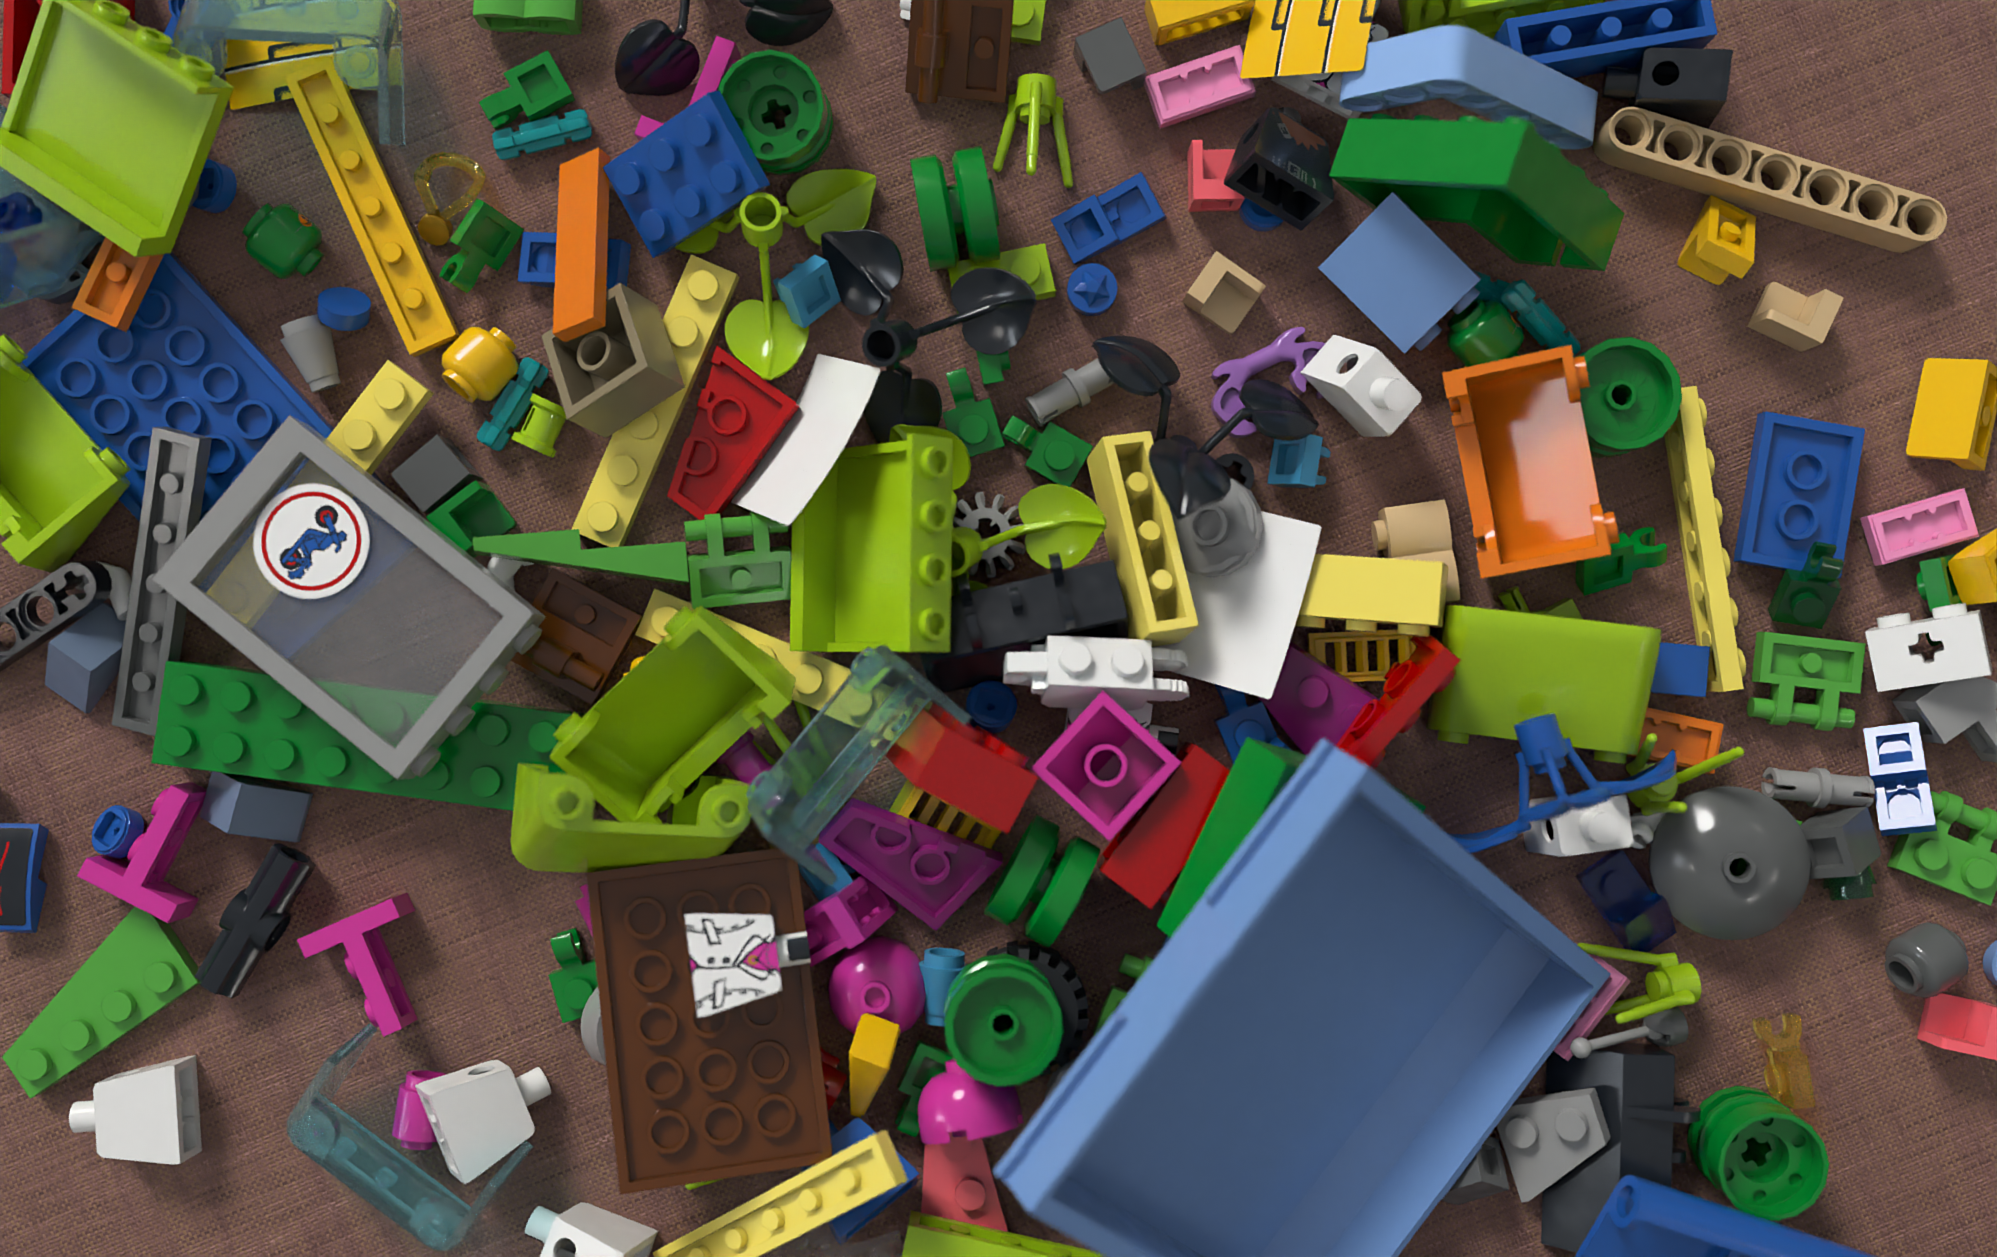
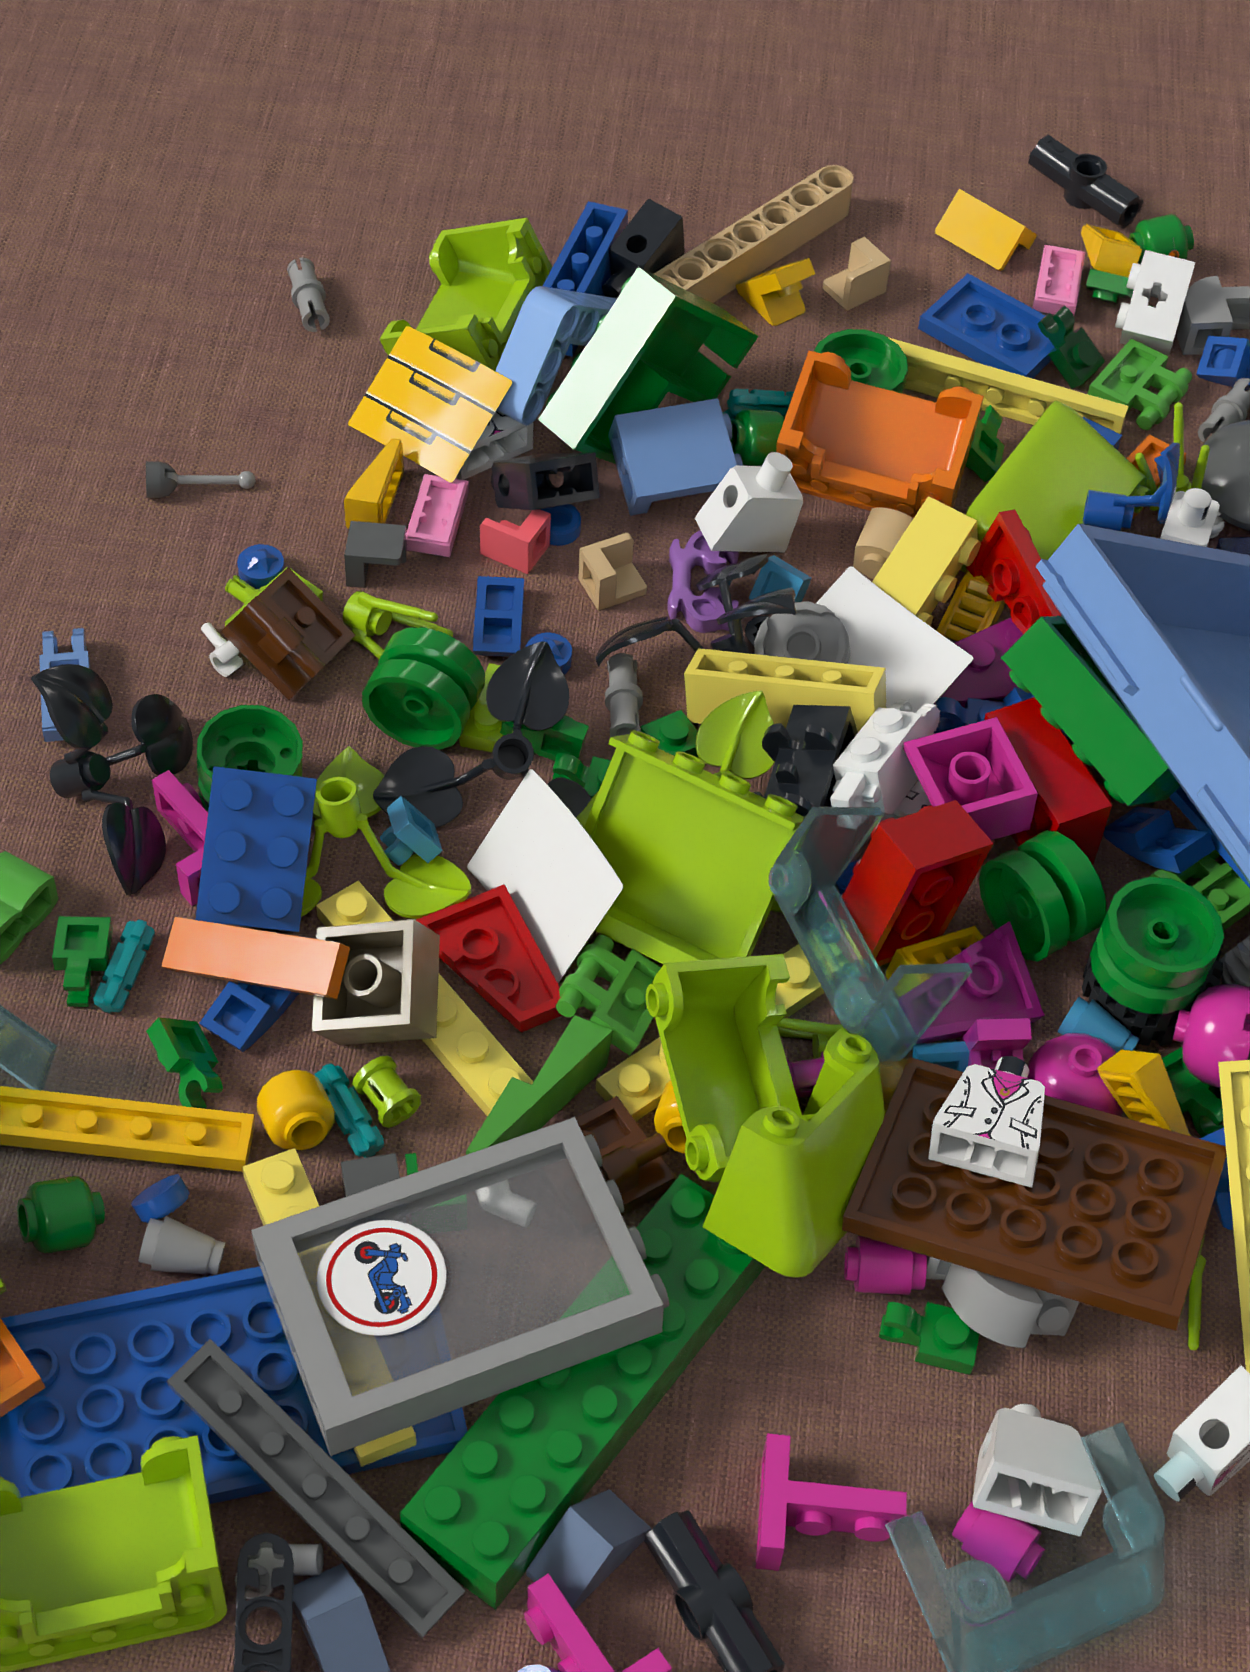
camera: 65 degrees left, 35 degrees down
(435, 225) = (138, 1085): clear yellow piece -> none

